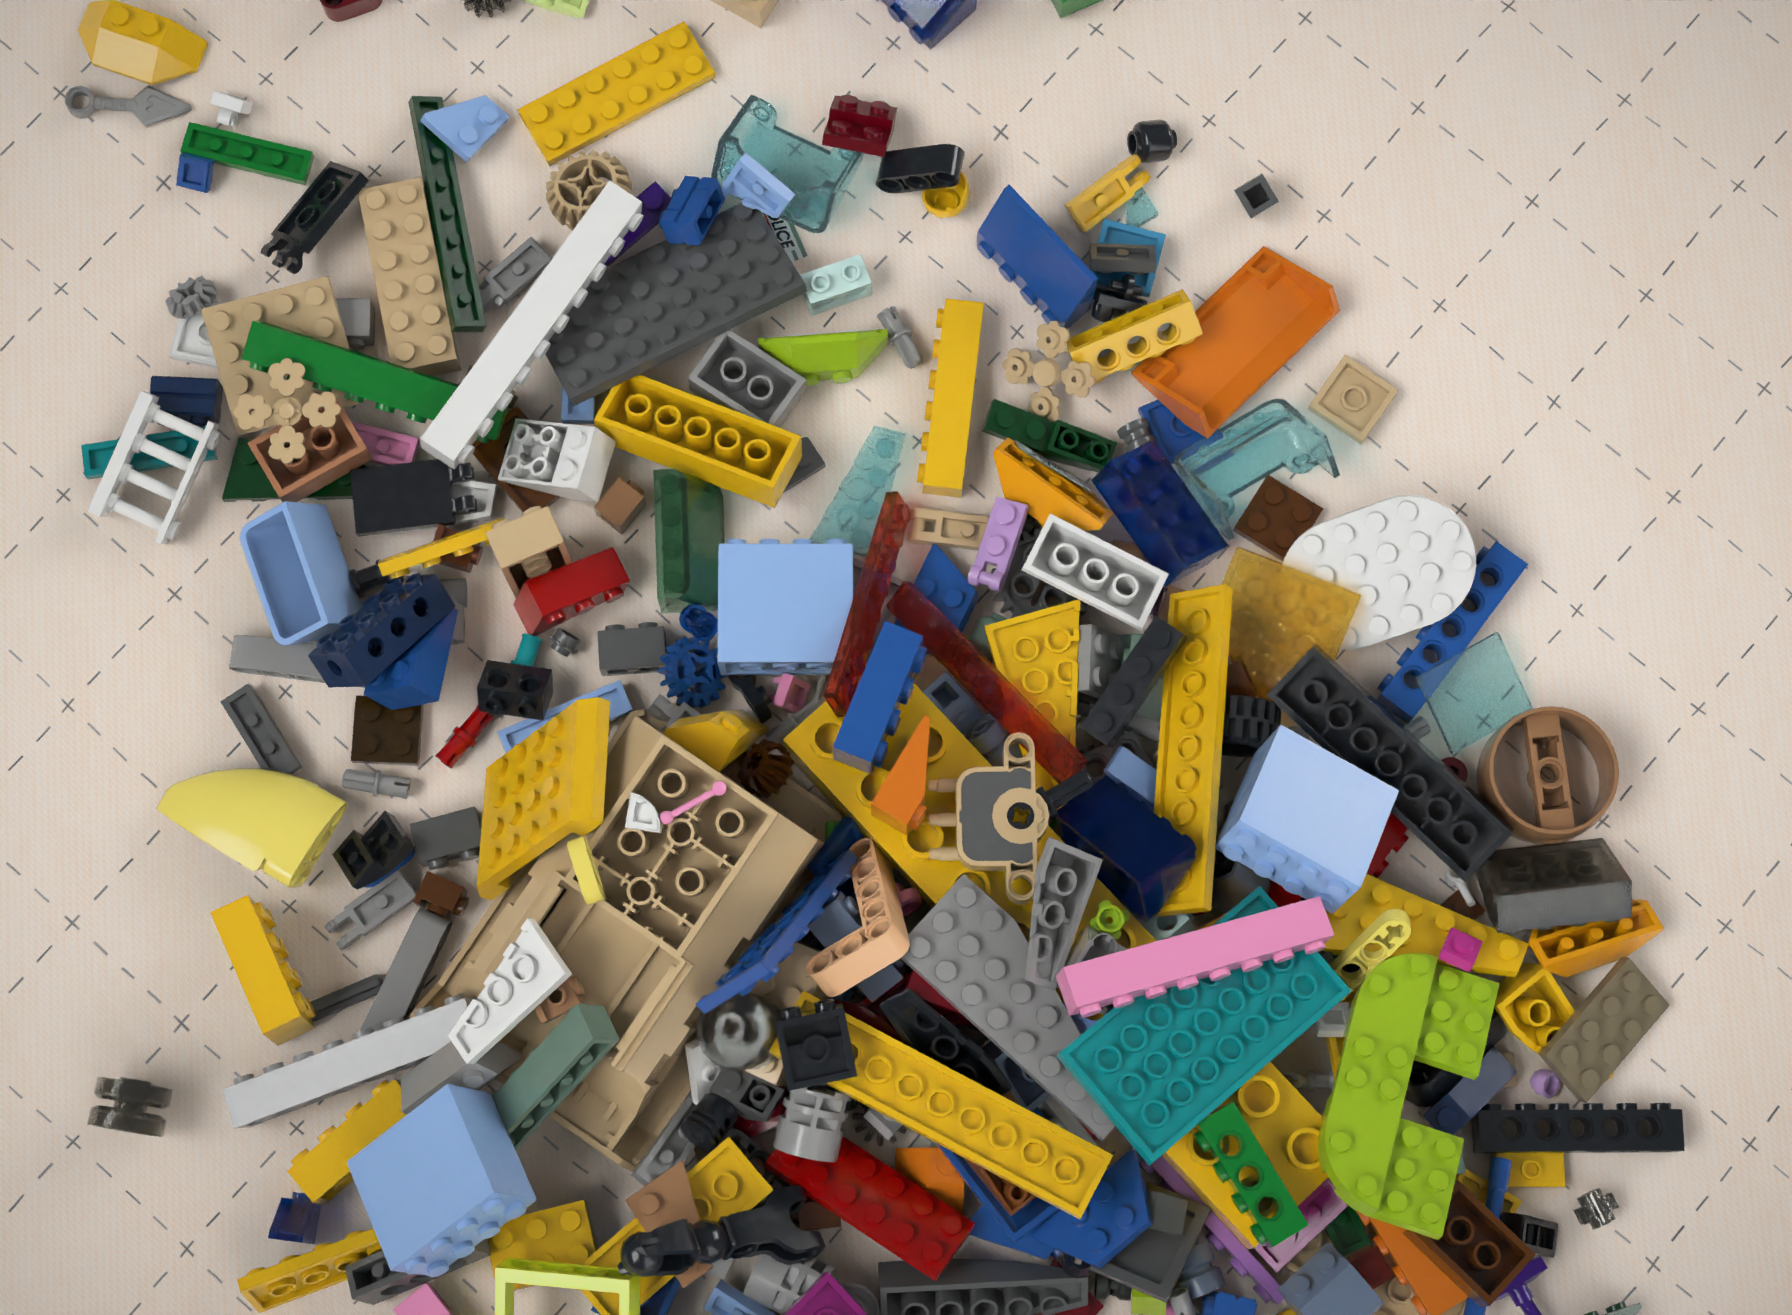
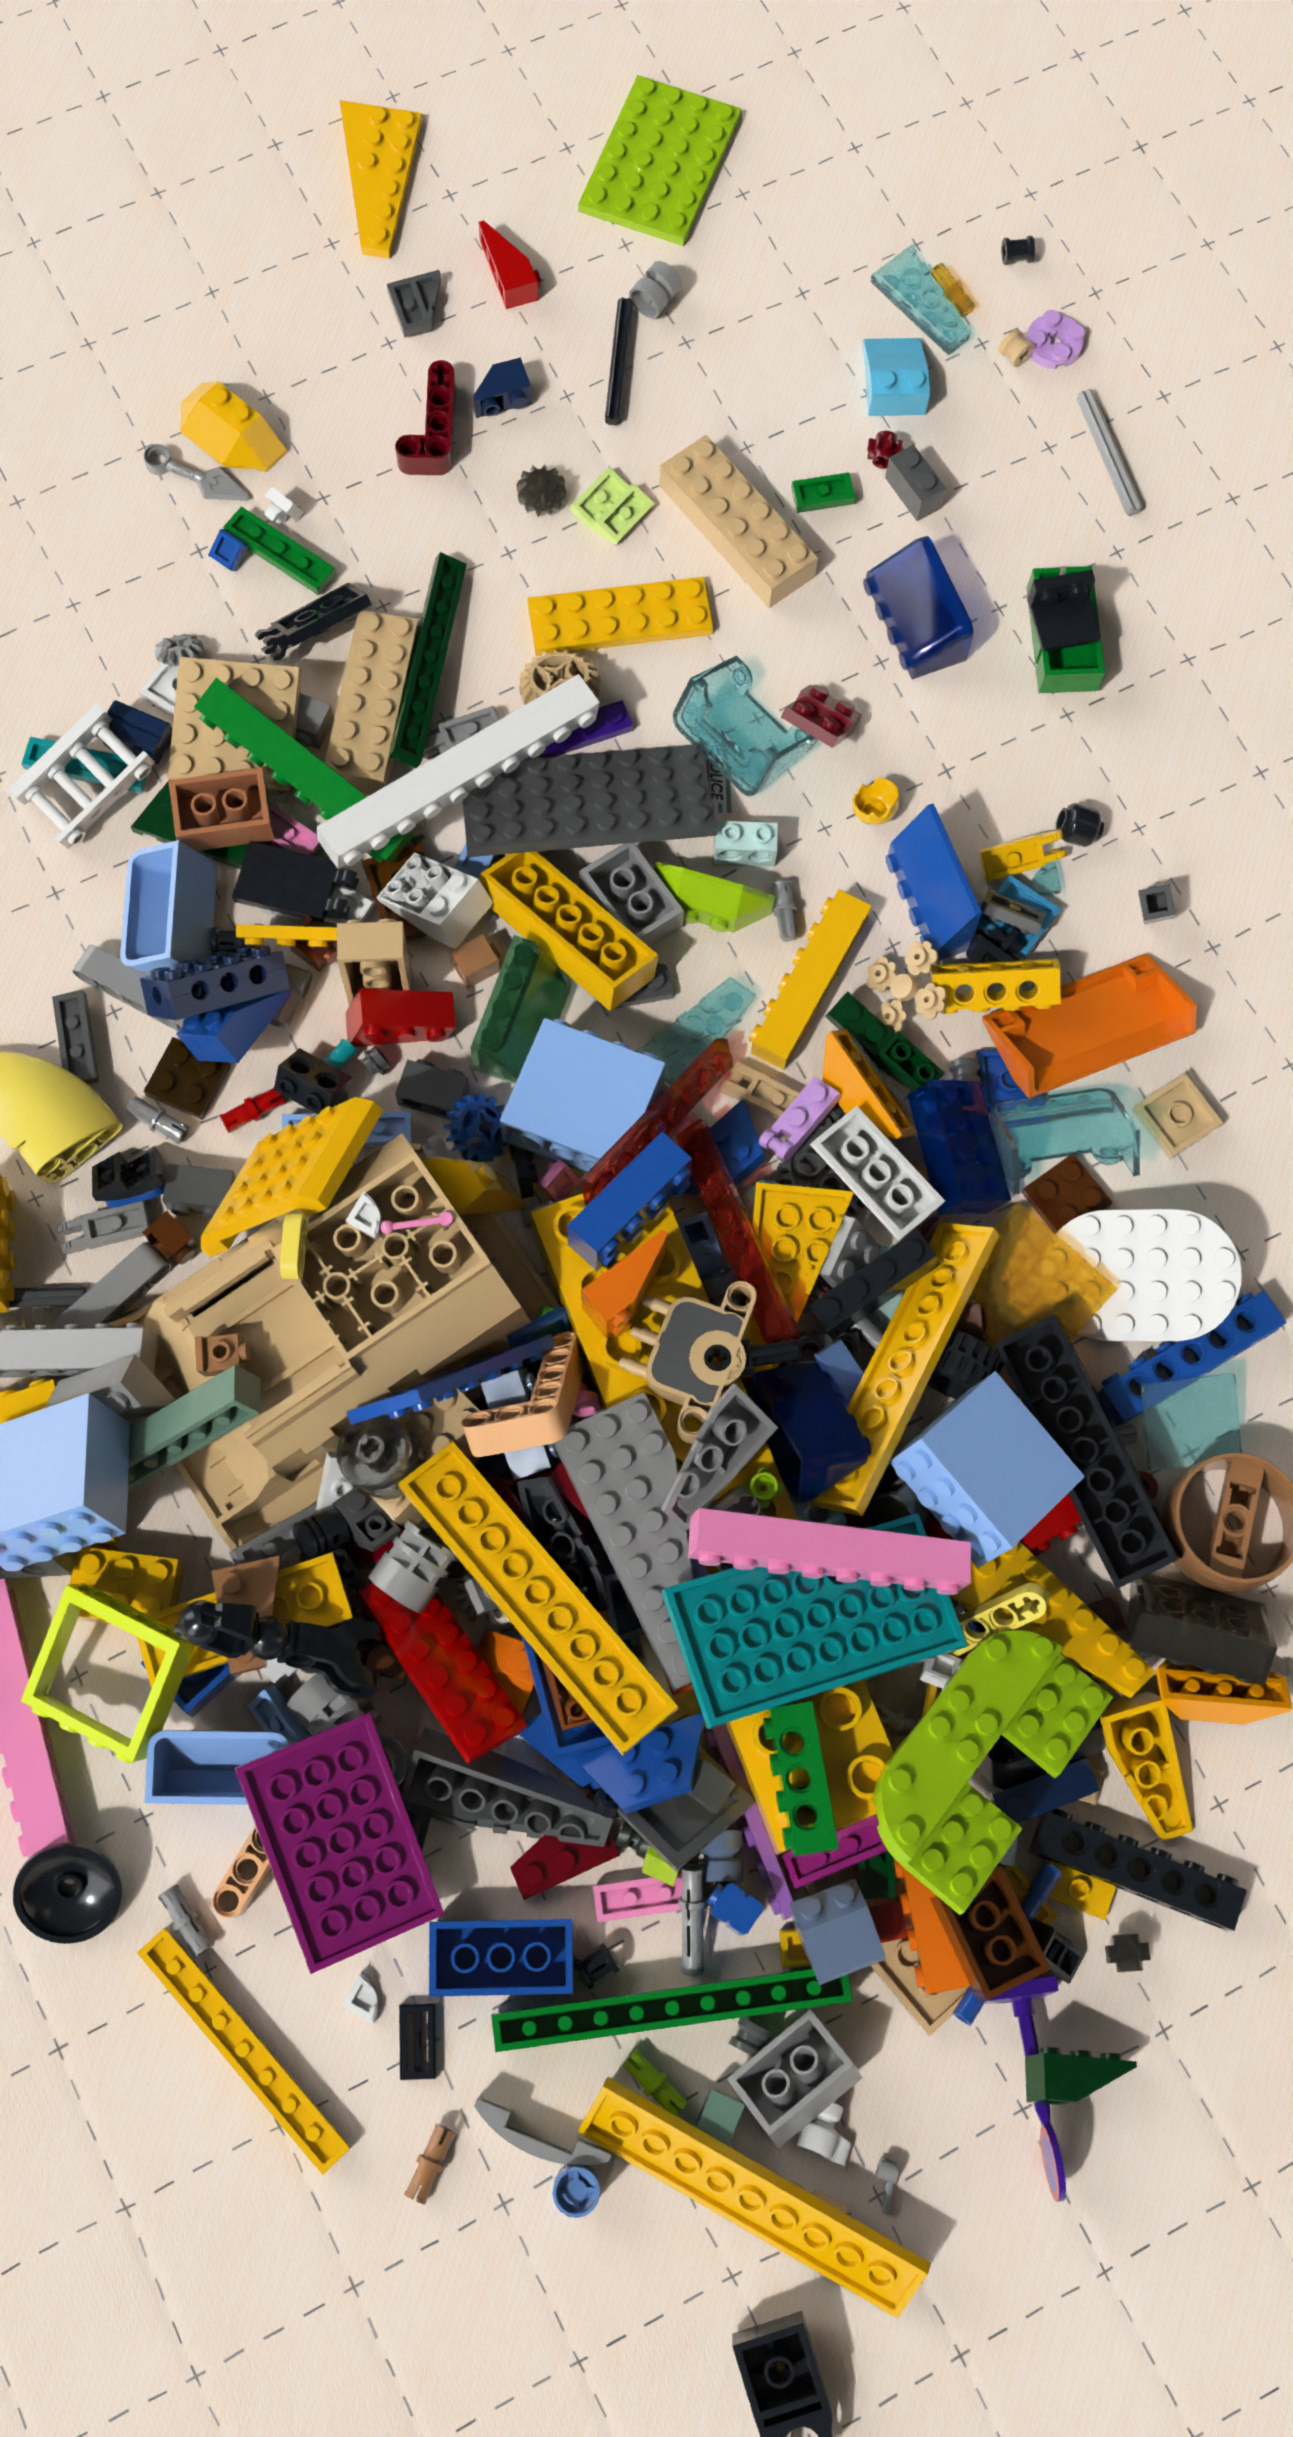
camera: 20 degrees right, 5 degrees down
(287, 411) = (213, 765): tan plant -> none
(466, 125) = (477, 593): light blue wing -> none
(515, 989) = (180, 1332): white wing -> none
(691, 210) = (643, 733): blue brick -> none
(698, 622) = (495, 1077): clear blue bush -> none
(757, 187) = (707, 732): light blue wing -> none
(765, 768) = (506, 1235): reddish brown gear -> none
(815, 1044) = (440, 1492): black plate -> none
(920, 168) = (861, 770): black beam -> none
(1460, 949) = (1087, 1649): dark pink plate -> none
(1462, 886) = (1112, 1594): white hand -> none
(1545, 1083) = (1123, 1812): lavender hinge -> none
(1604, 1029) = (1198, 1783): dark tan plate -> none

